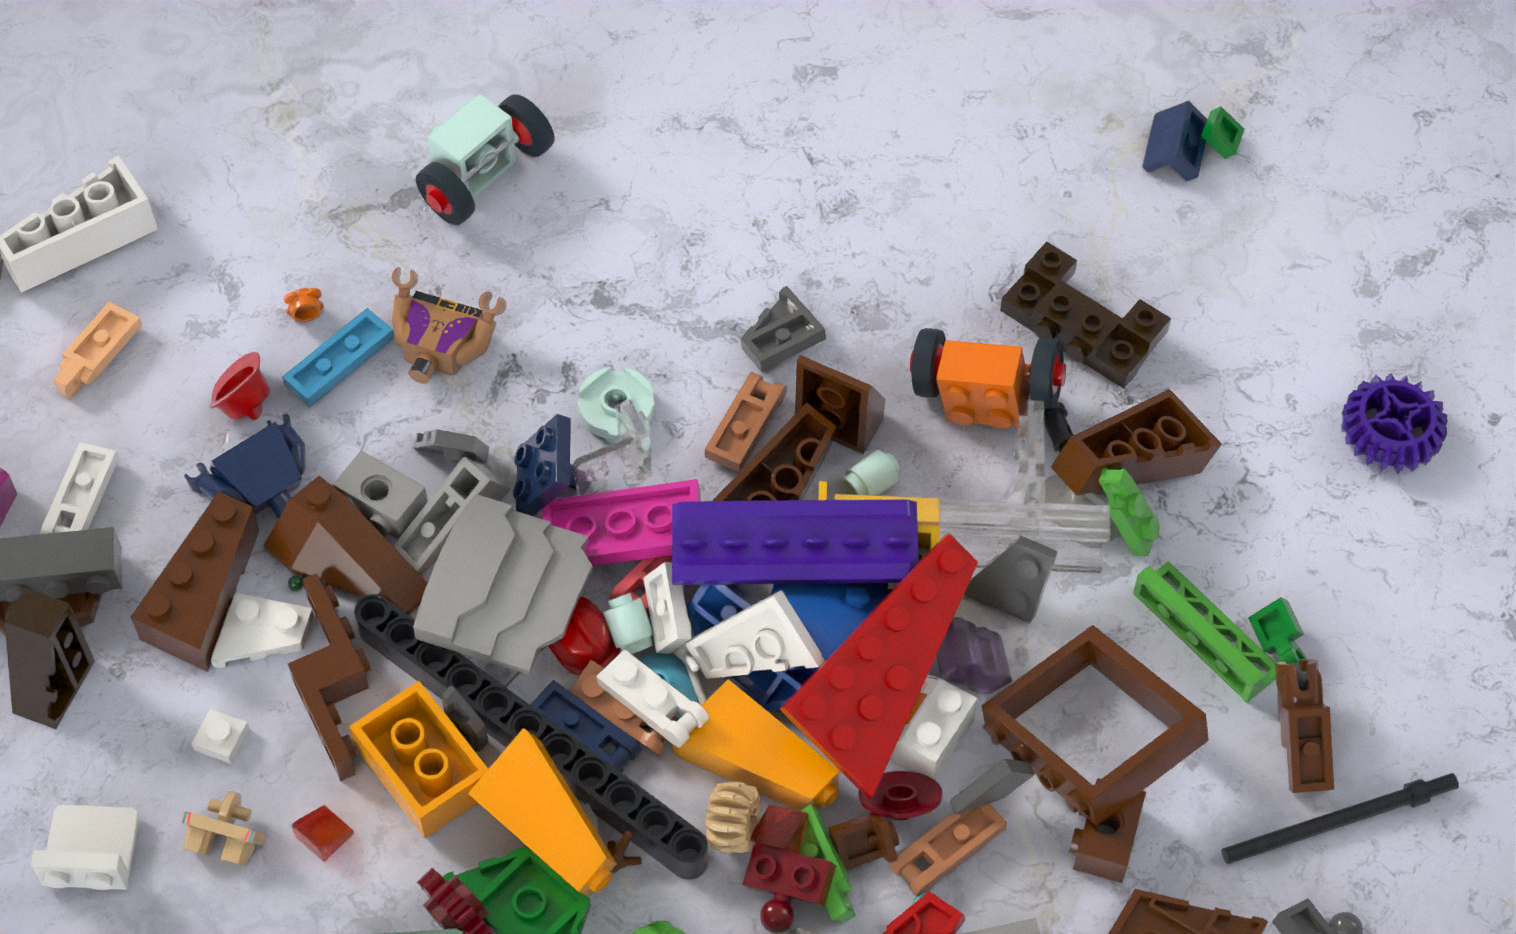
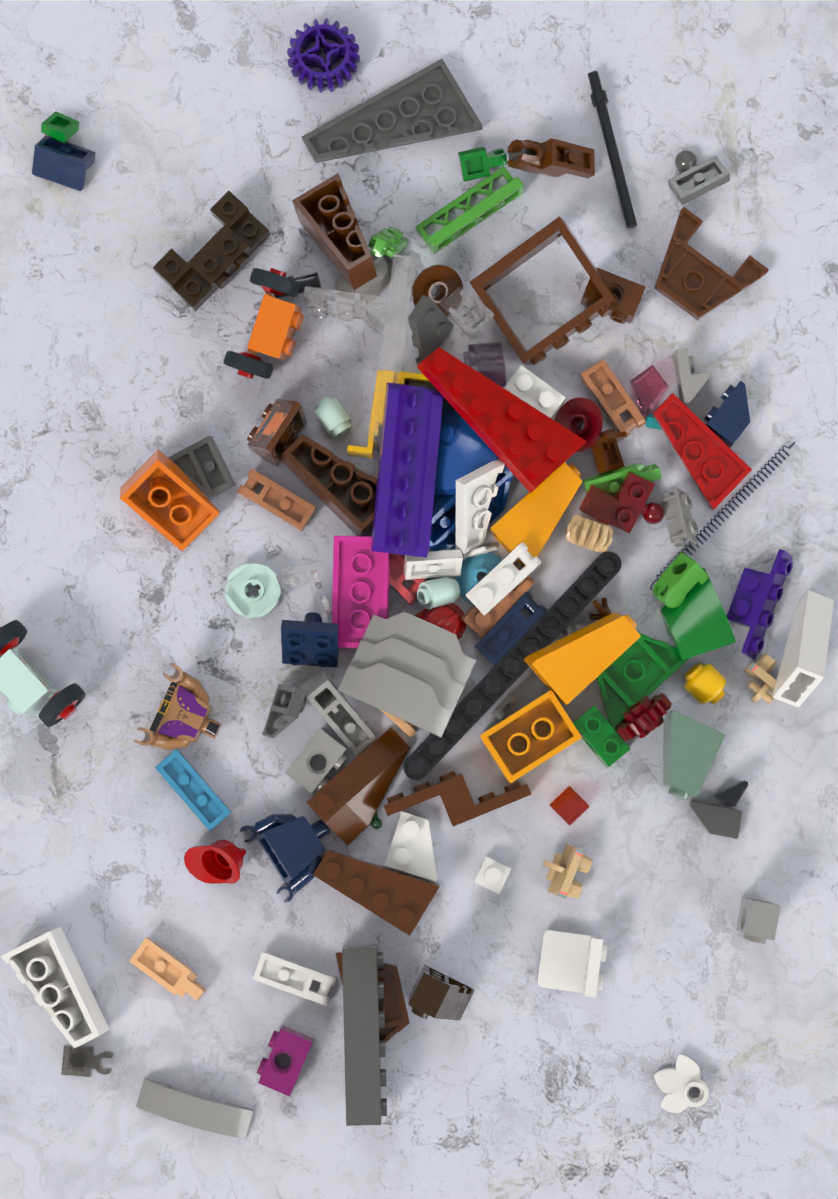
camera: 80 degrees left, 25 degrees up
(304, 304) = (145, 814): orange plate -> none
(436, 845) = (601, 737): none -> green brick
(730, 289) = (168, 500): none -> orange slope
(972, 895) = (648, 390): none -> clear pink piece
(992, 785) = (584, 363): dark grey tile -> none
(1048, 629) = (466, 311): none -> clear slope
(1059, 605) = (442, 277): none -> reddish brown dish
(1335, 538) = (410, 112): none -> dark grey wing

